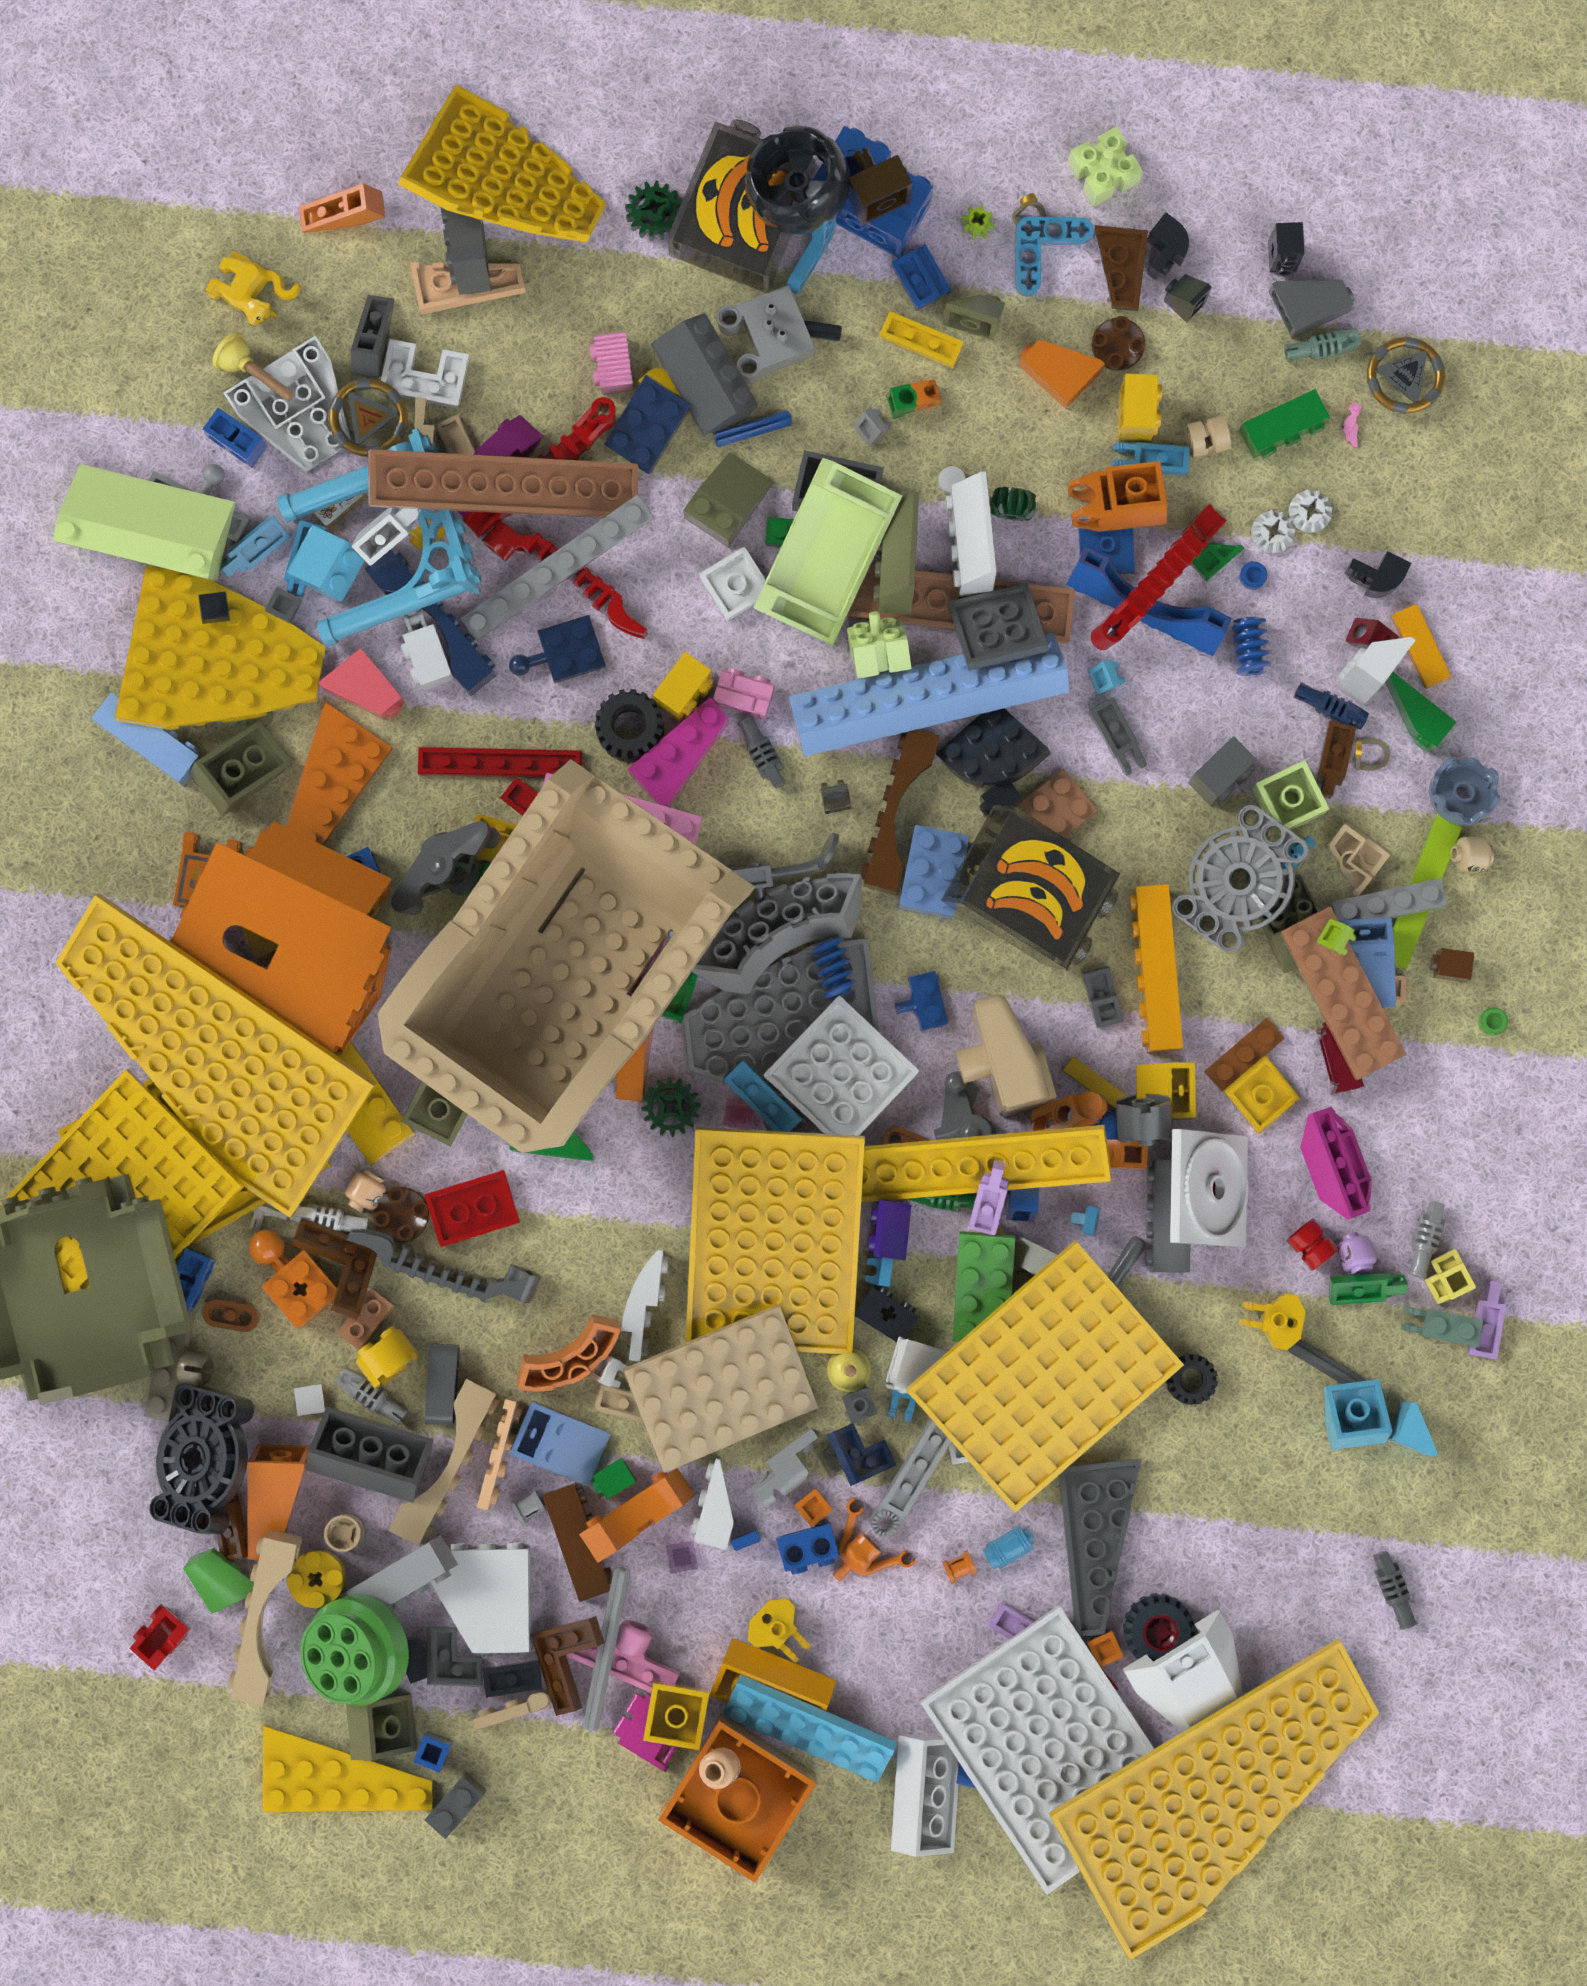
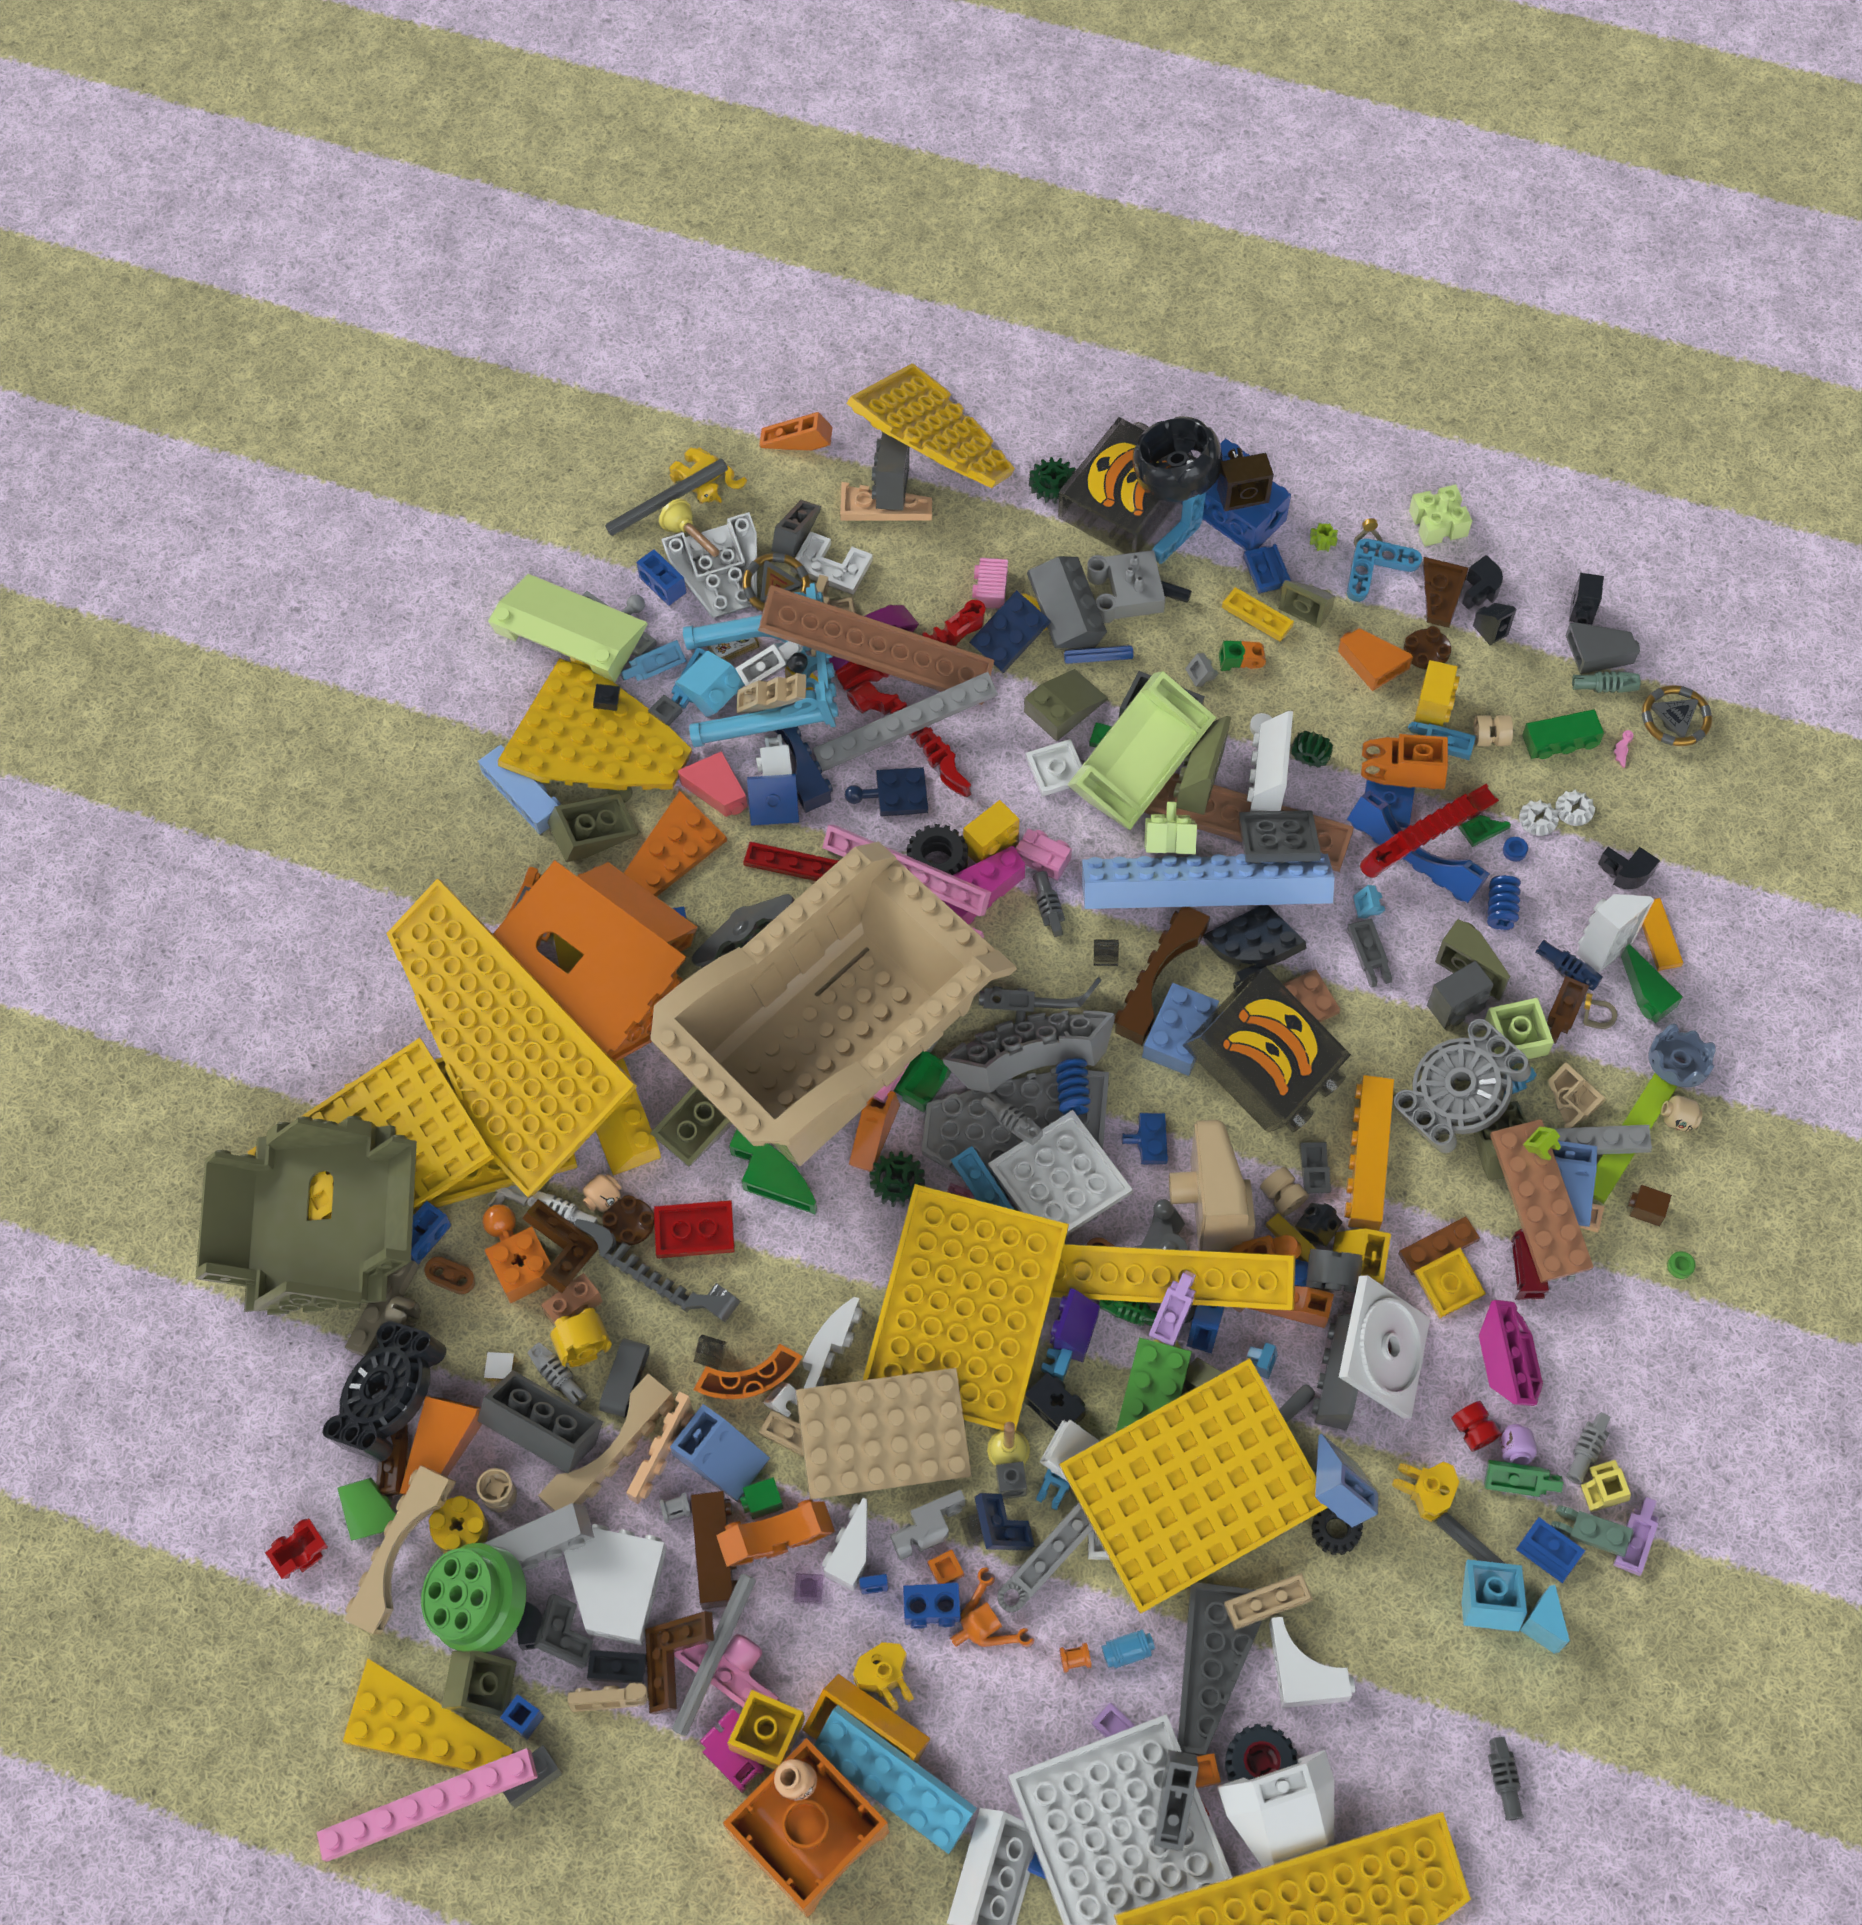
camera: 15 degrees right, 20 degrees down
(213, 330) = (663, 498): none -> dark grey axle
(365, 1857) = (427, 1805): none -> bright pink plate
(401, 576) = (771, 694): none -> tan slope
(421, 529) = (797, 662): none -> black hinge
(432, 694) = (773, 799): none -> blue plate
(523, 1339) = (710, 1351): none -> clear smoke tile
(600, 755) = (943, 885): none -> bright pink plate
(779, 1019) = (1013, 1119): none -> light grey hinge
(1076, 1033) = (1284, 1191): none -> tan wheel
(1085, 1688) = (1175, 1799): none -> dark grey slope
(1118, 1061) = (1319, 1223): none -> black brick
(1137, 1471) = (1268, 1601): none -> tan tile
(1183, 1539) = (1303, 1679): none -> white arch
(1192, 1340) = (1343, 1485): none -> medium blue slope
(1222, 719) = (1465, 945): none -> olive slope
(1404, 1353) = (1550, 1550): none -> blue plate

